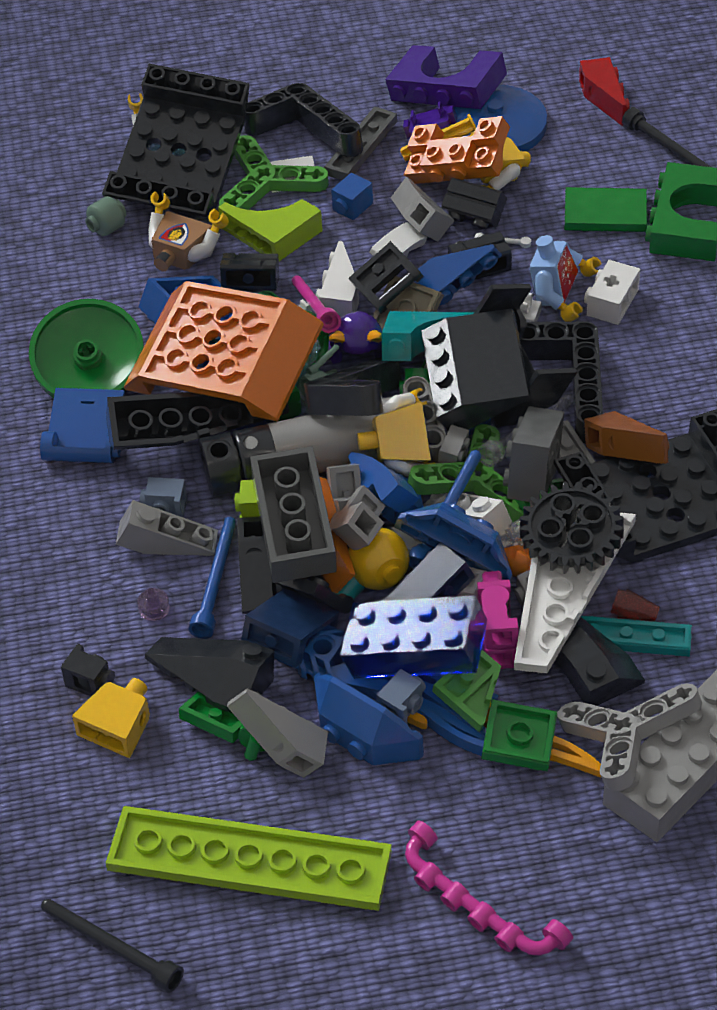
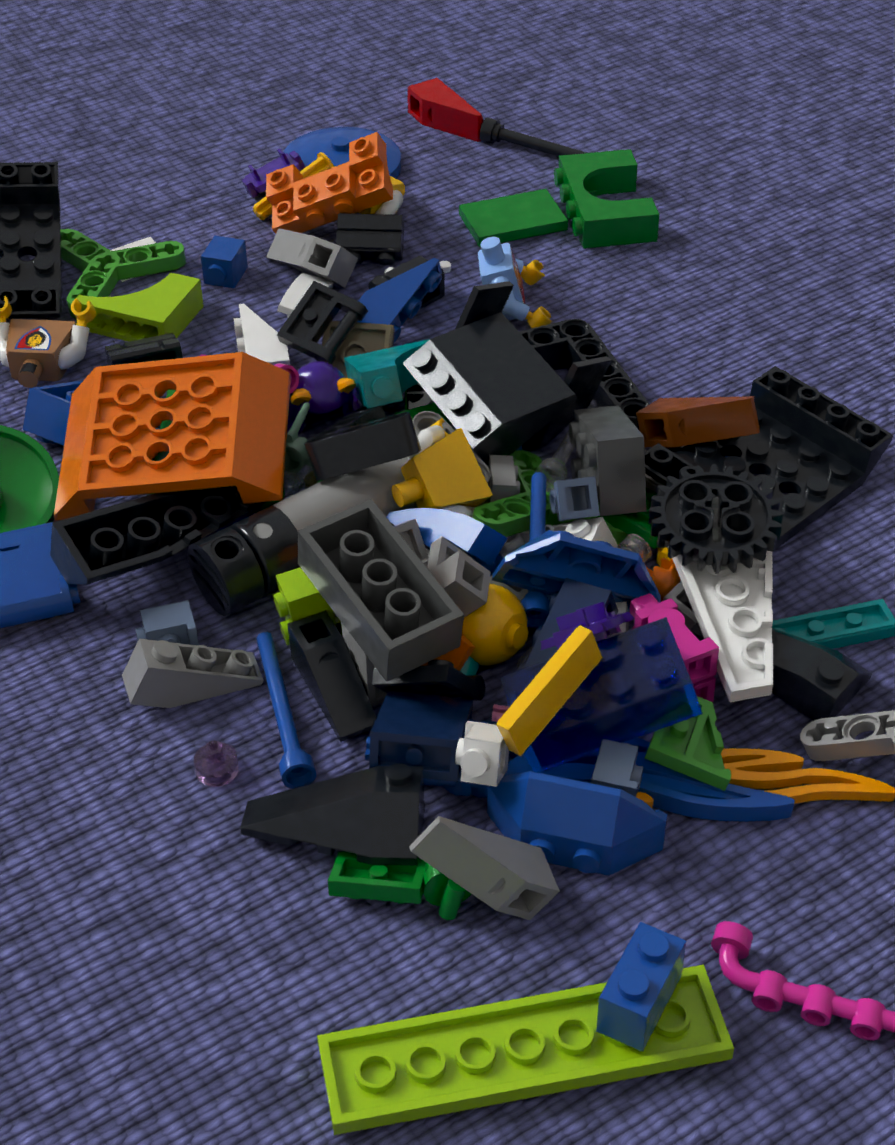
camera: 25 degrees left, 5 degrees down
(85, 671) = (173, 875): black brick -> none
(114, 717) = (240, 921): yellow torso -> none
(306, 654) = (482, 754): none -> white brick
(311, 110) = (133, 190): black beam -> none
(333, 842) = (640, 986): none -> blue brick
(367, 624) = (549, 690): none -> yellow tile
(373, 130) = (204, 211): dark grey plate -> none
(435, 586) = (591, 617): none -> dark purple piece
(471, 88) = (234, 142): dark purple arch -> none
(486, 480) = (575, 498): none -> sand blue brick
(519, 735) = (778, 779): green tile -> none
(612, 292) = (573, 288): white brick -> none
(634, 607) = (805, 597): clear red cone -> none

